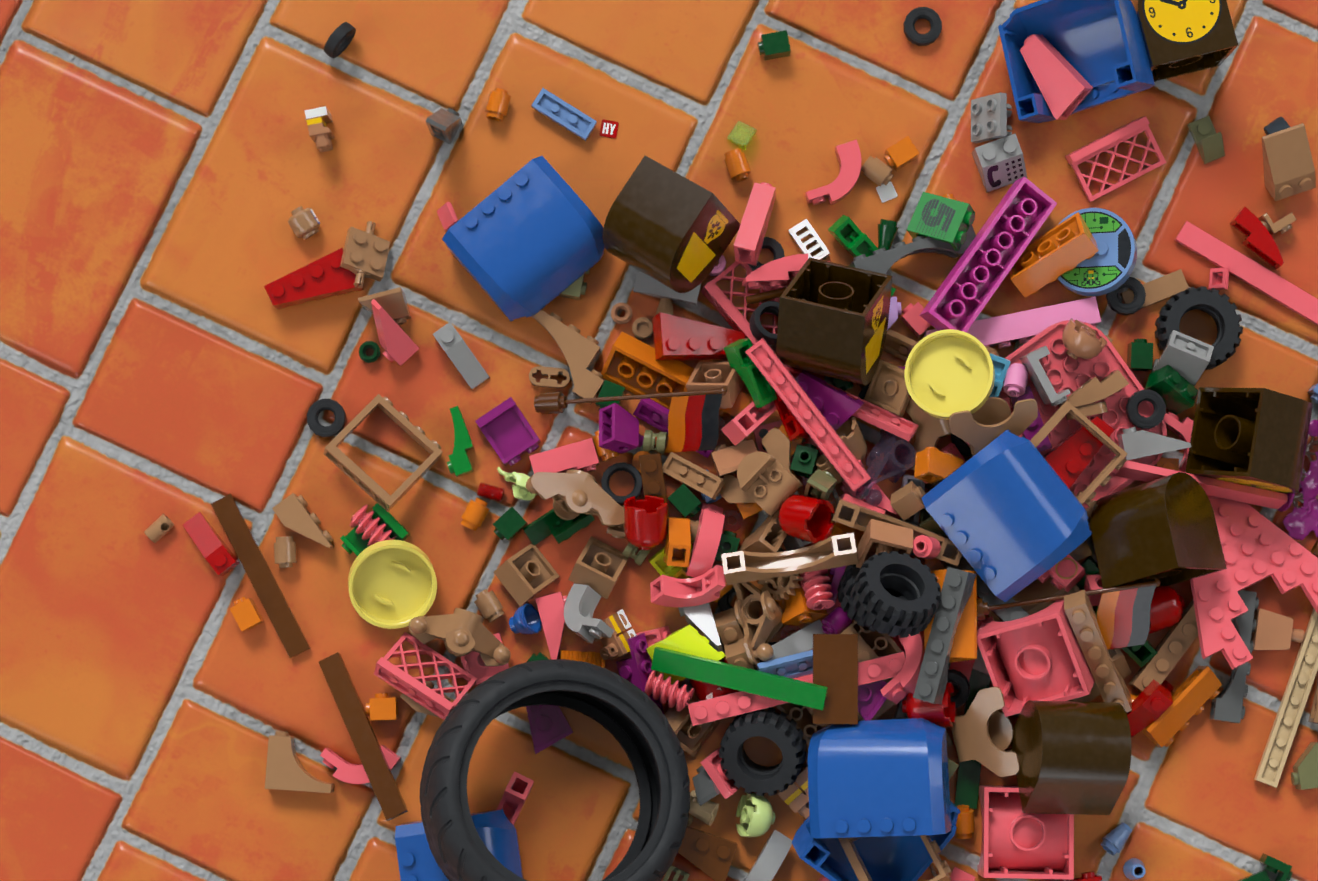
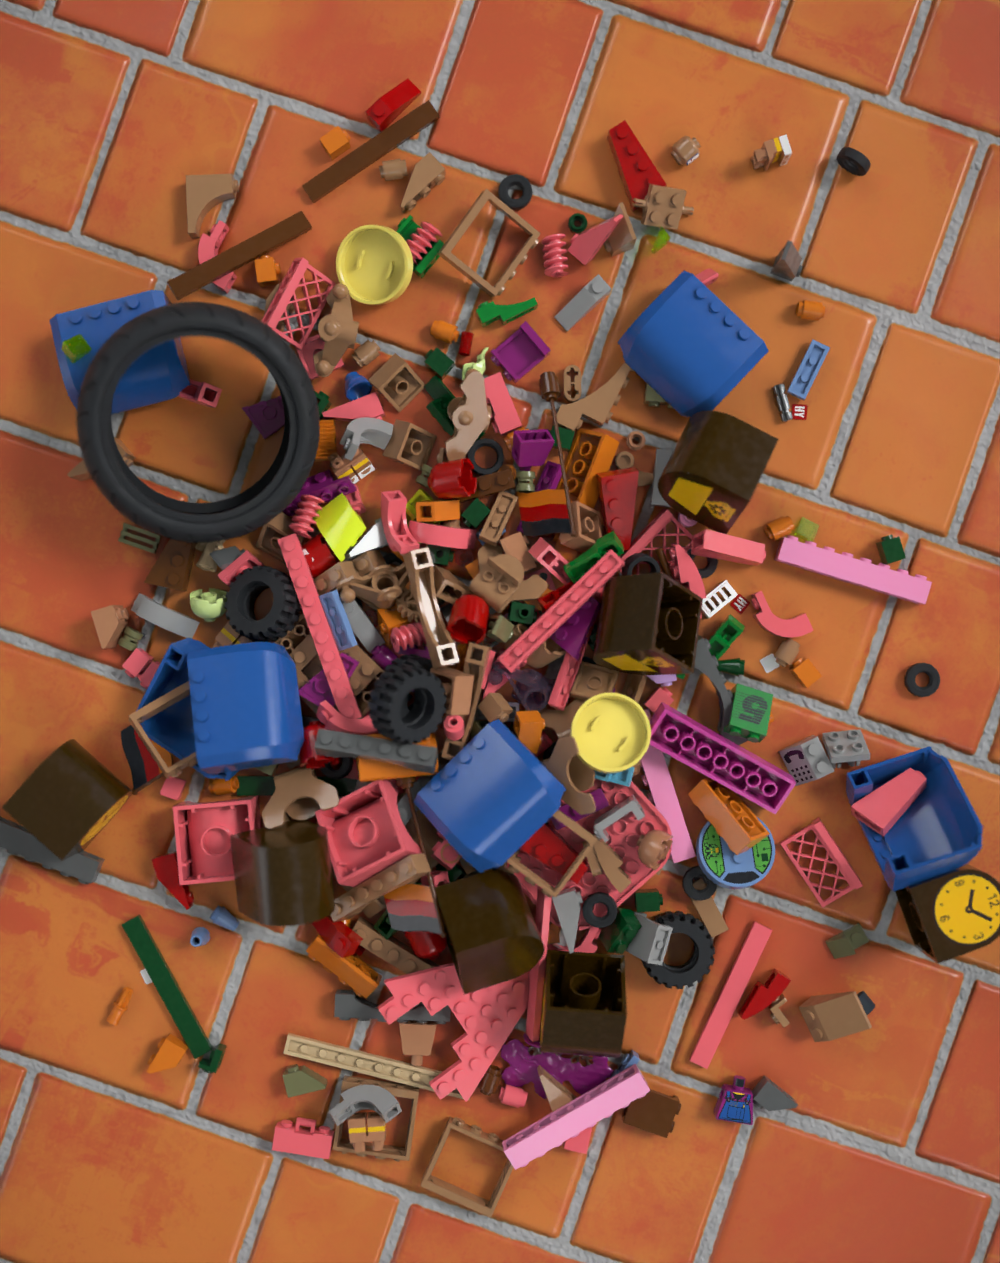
camera: 85 degrees right, 5 degrees up
(159, 528) = (402, 57): medium nougat piece -> none
(399, 260) = (661, 240): none -> clear neon green slope
(404, 381) = (553, 255): none -> coral piece
(596, 146) = (782, 402): none -> dark grey axle
(739, 678) = (321, 575): green tile -> none
(793, 89) = (853, 571): none -> bright pink brick
(816, 217) = (740, 603): none -> red sticker
(836, 668) = (330, 659): reddish brown tile -> none
(1016, 380) = (612, 792): bright pink brick -> none
(1219, 278) = (723, 963): coral slope -> none

